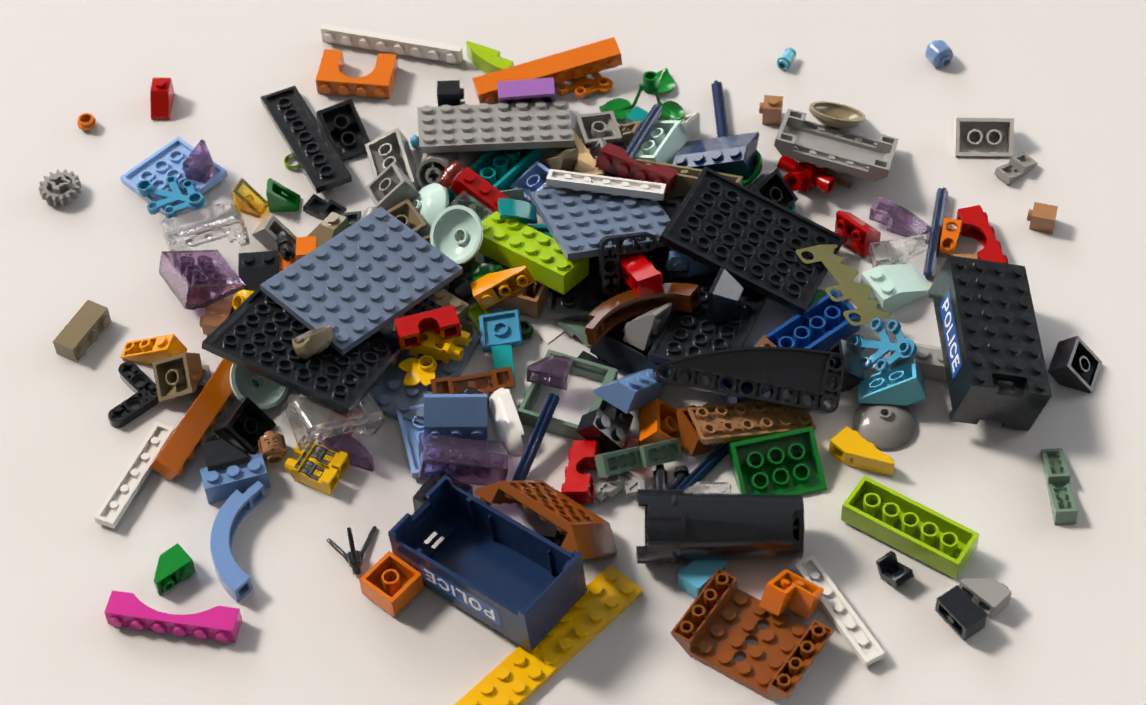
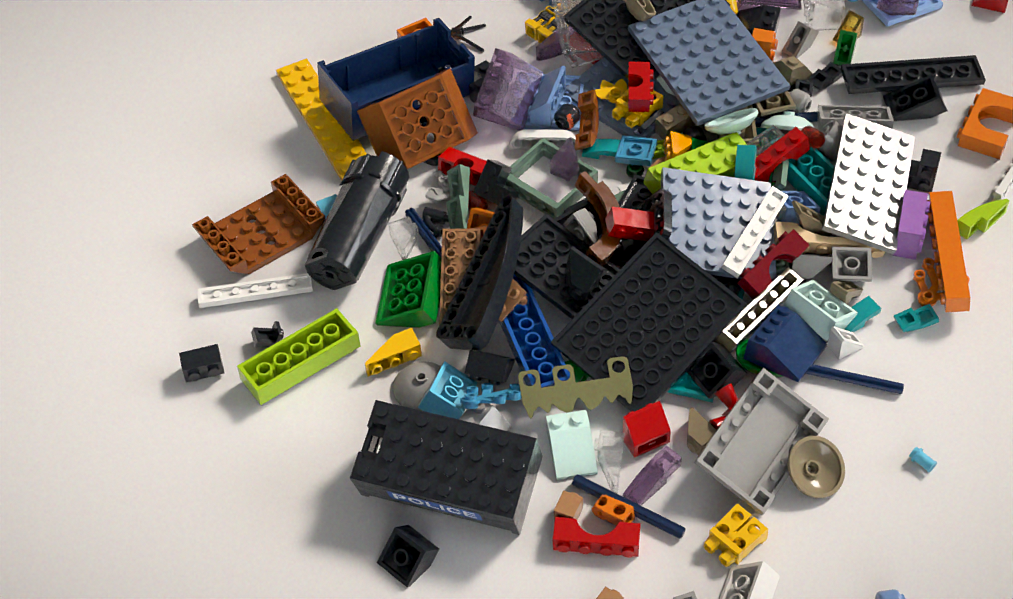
camera: 110 degrees right, 0 degrees up
(285, 247) = (779, 32): black axle -> none
(391, 188) = (813, 103): light grey slope -> none
(536, 437) = (509, 143): dark blue axle -> none
(628, 87) = (913, 320): none -> teal slope
(630, 390) = (526, 194): medium blue slope -> none
(644, 130) = (830, 292): dark blue axle -> none
(652, 83) = (865, 332): green plant -> none
(771, 110) = (843, 418): medium nougat brick -> none
(792, 593) = (282, 256): orange brick -> none
(838, 197) = (699, 431): none -> dark tan slope
(929, 153) = (735, 536): none -> yellow hips
(987, 593) = (210, 389): light grey slope -> none
(1058, 486) = (290, 491): sand green slope -> none

